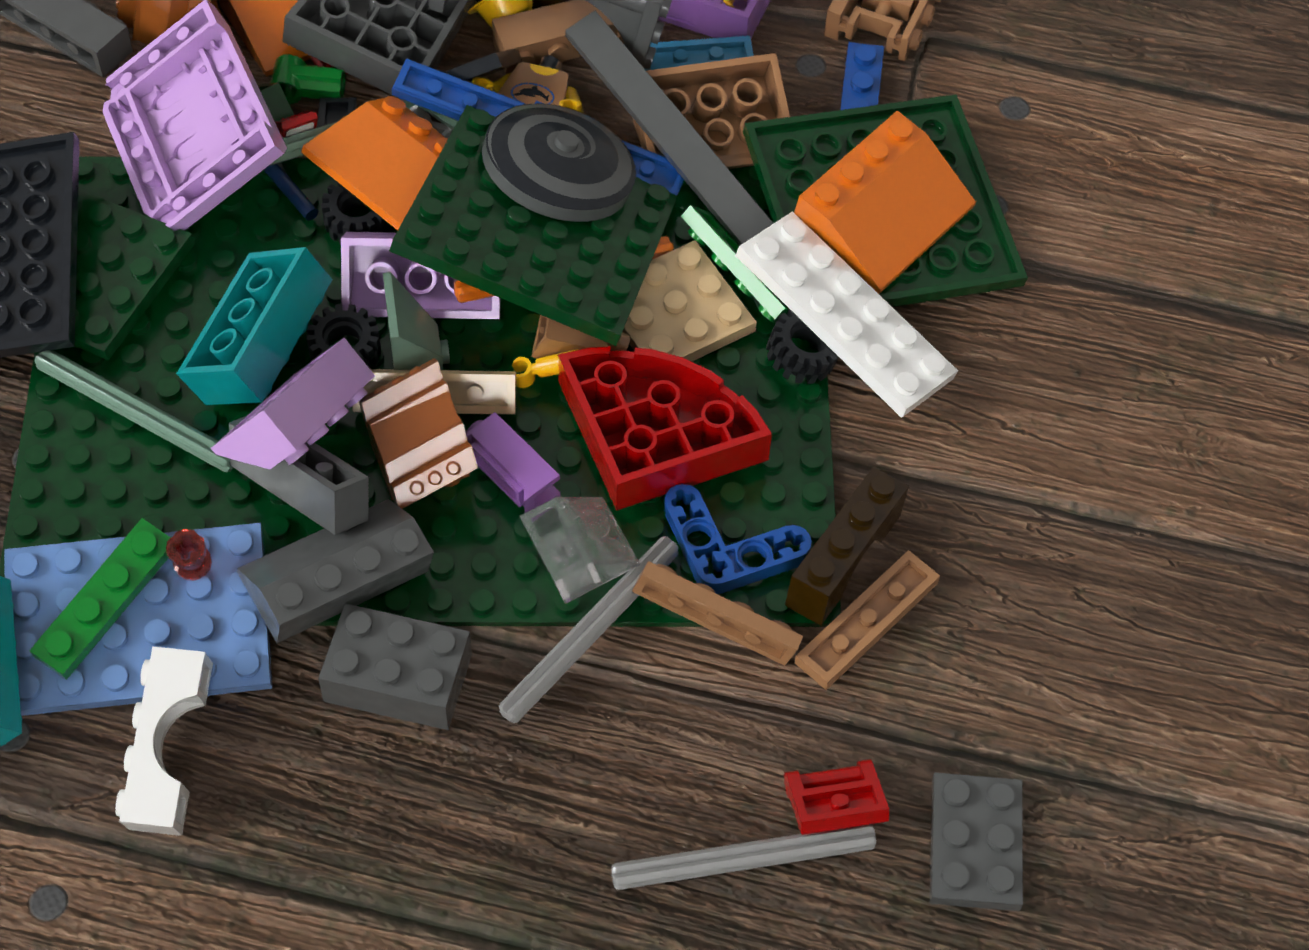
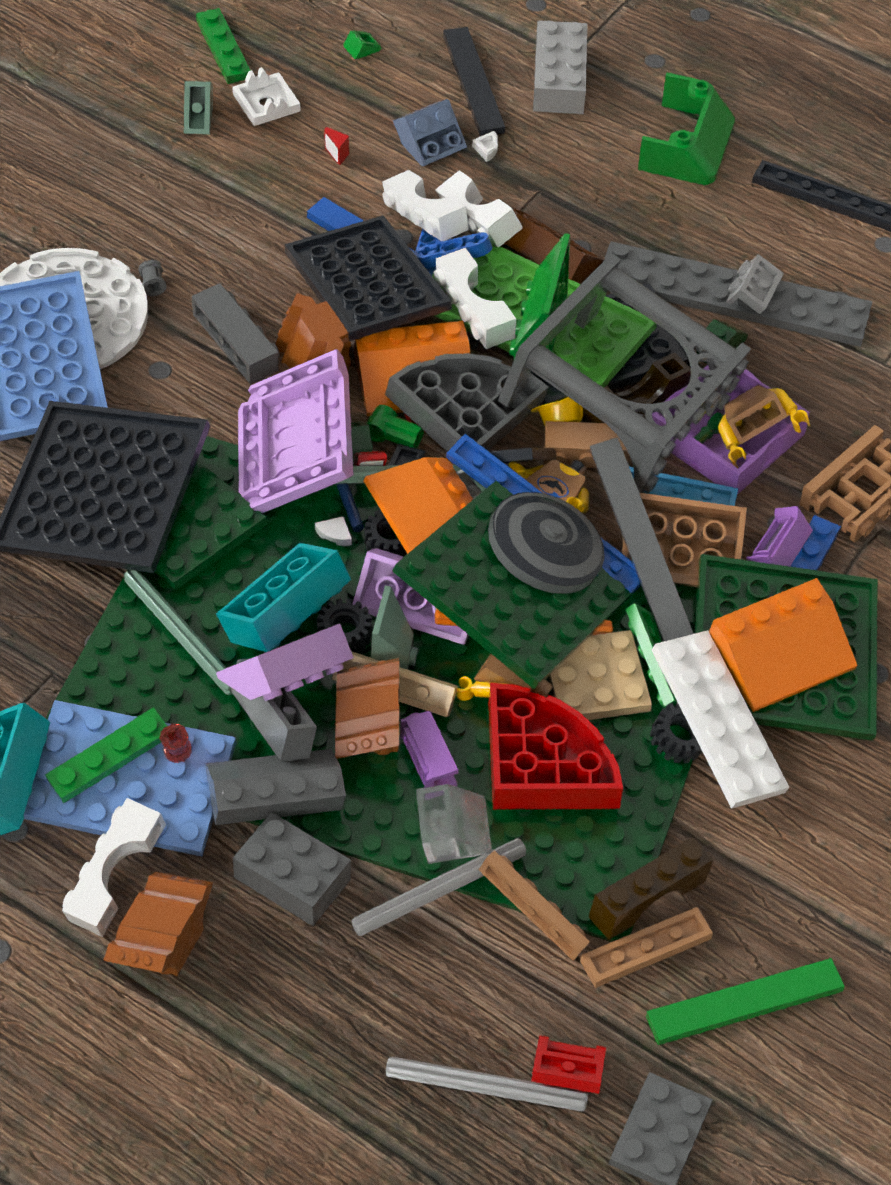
camera: 20 degrees right, 5 degrees down
(256, 795) = (161, 924): none -> dark orange slope
(283, 226) = (334, 530): none -> white tile
(729, 558) = (560, 870): blue beam -> none
(827, 77) = (783, 538): none -> medium lavender window
(1006, 647) = (744, 1001): none -> green tile

